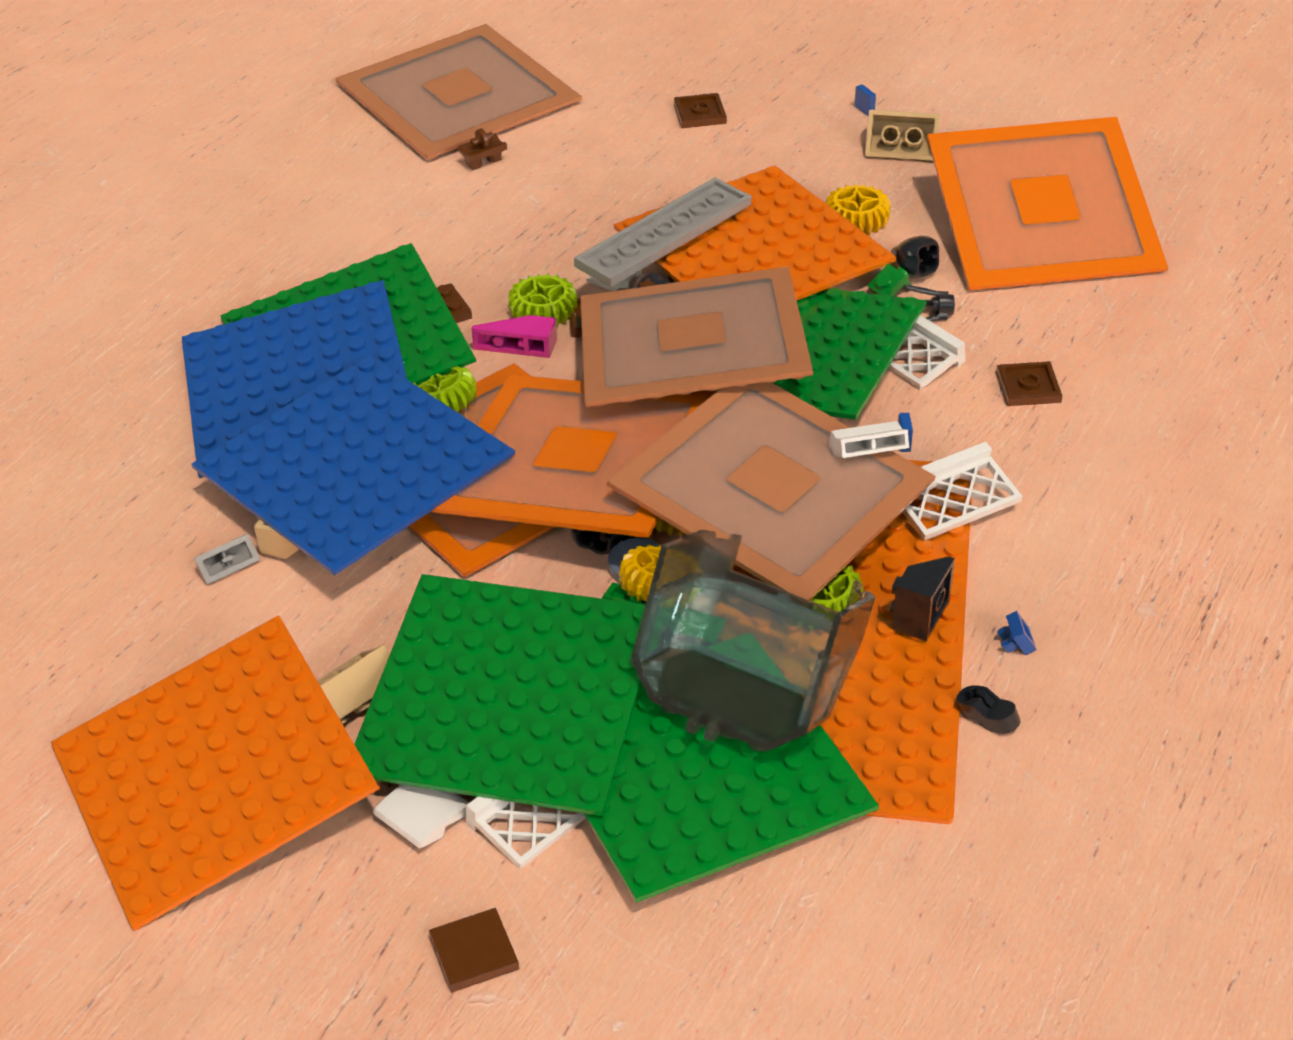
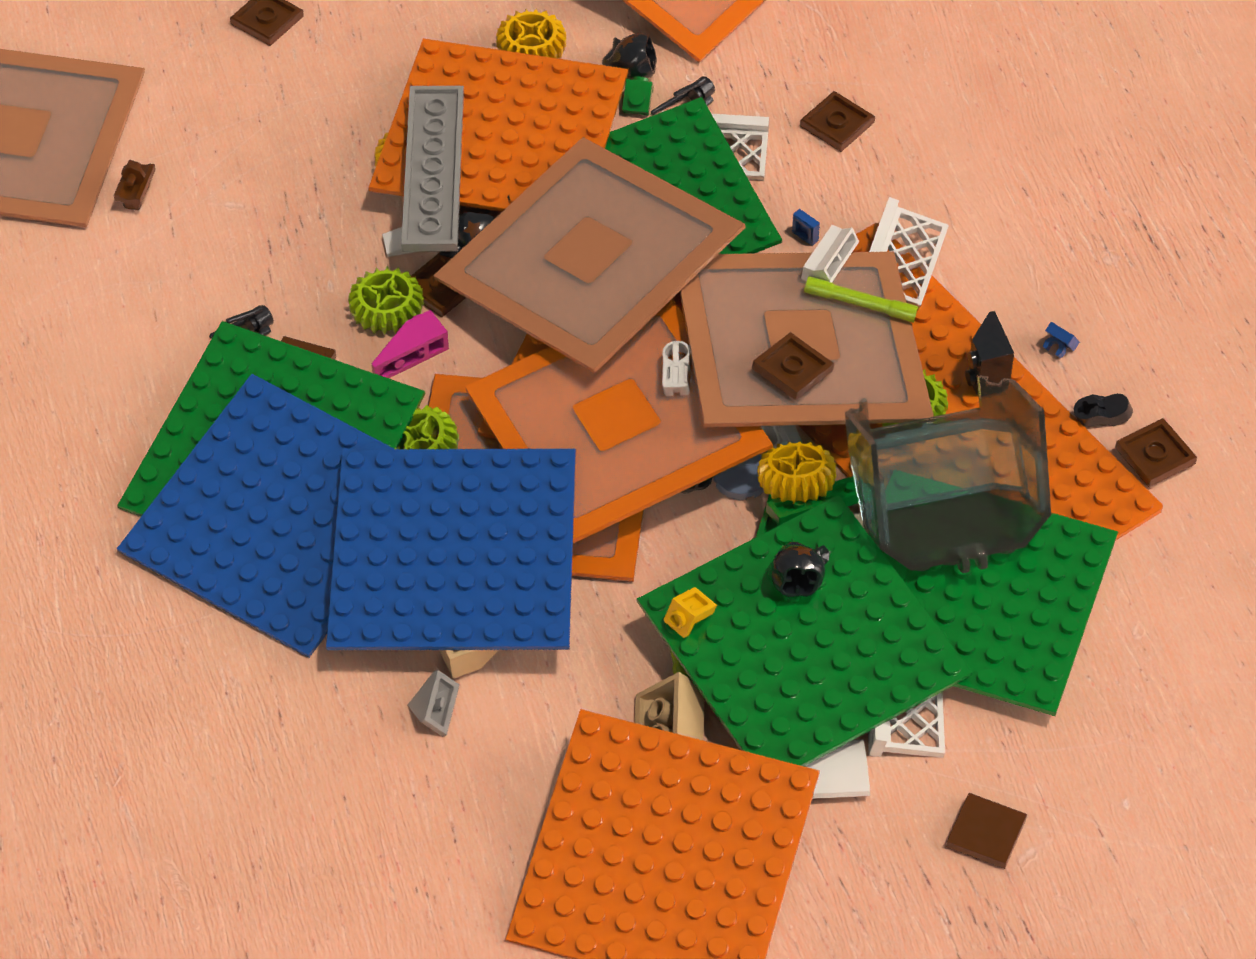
camera: 45 degrees left, 10 degrees up
(436, 600) = (687, 610): none -> yellow bracket
(448, 264) = (255, 320): none -> black plant
(549, 627) = (799, 569): none -> black piece
(641, 441) = (676, 371): none -> white piece
(728, 487) = (792, 366): none -> reddish brown plate
(872, 505) = (891, 307): none -> lime piece
(996, 772) = (1156, 452): none -> reddish brown plate

